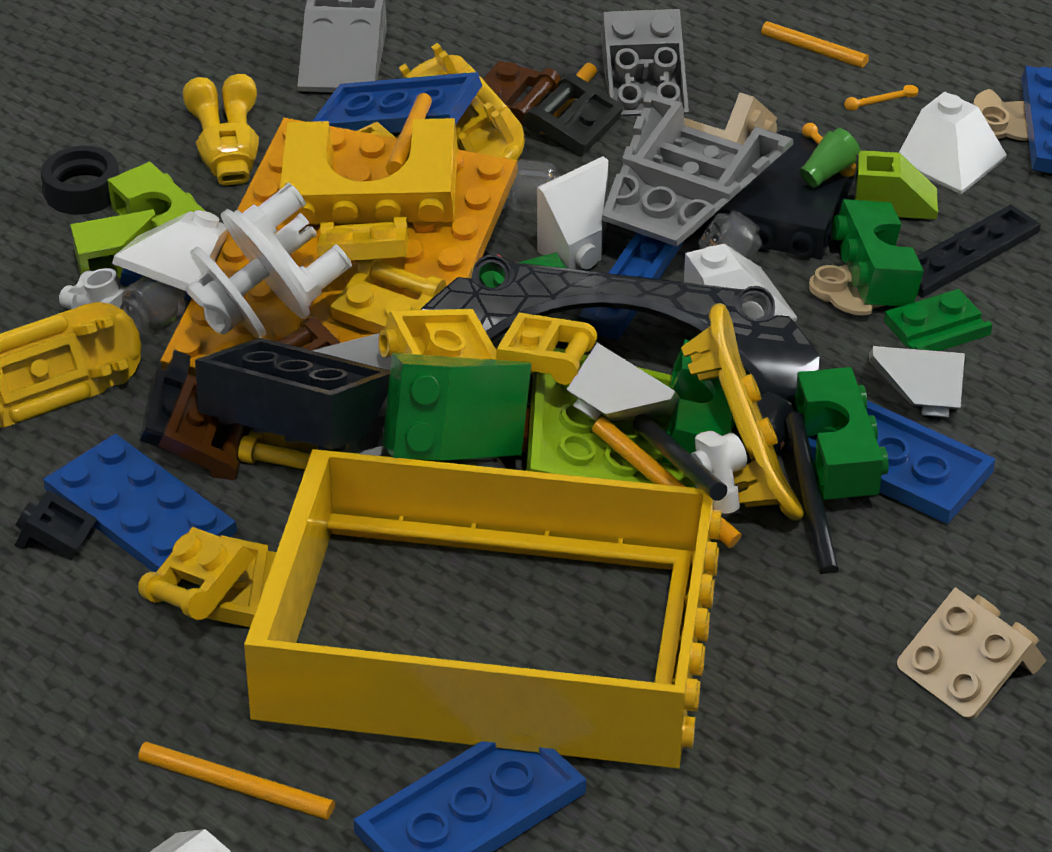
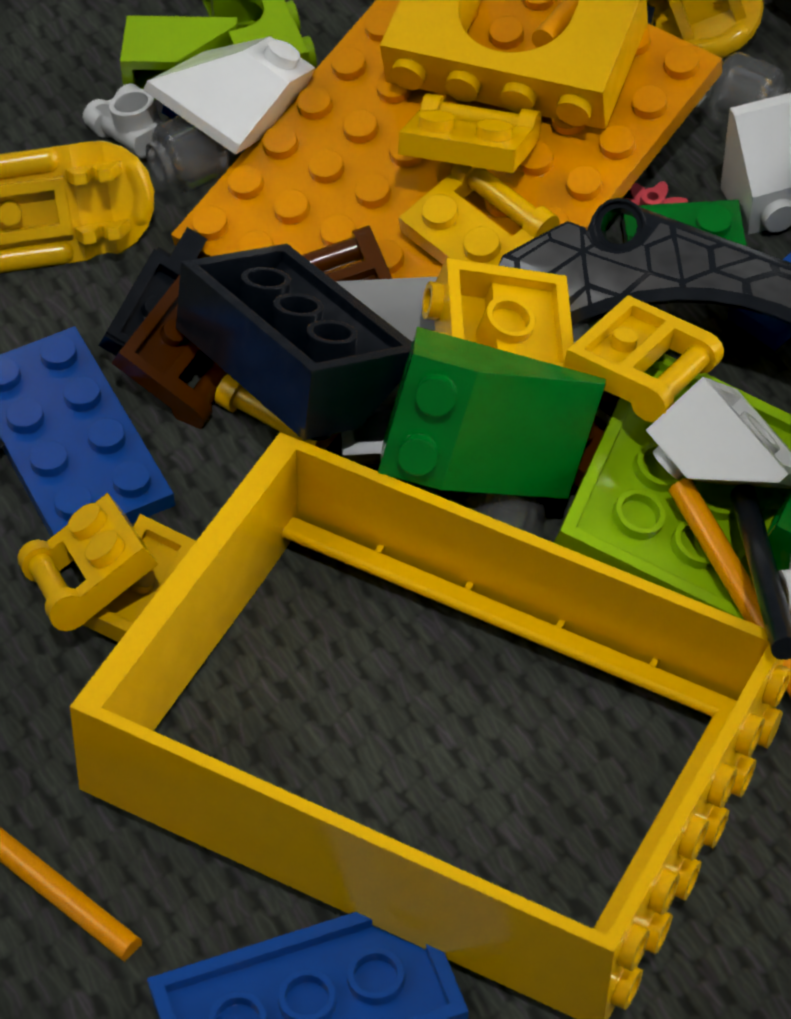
camera: 20 degrees right, 10 degrees up
(269, 261) = (329, 139): white piece -> none

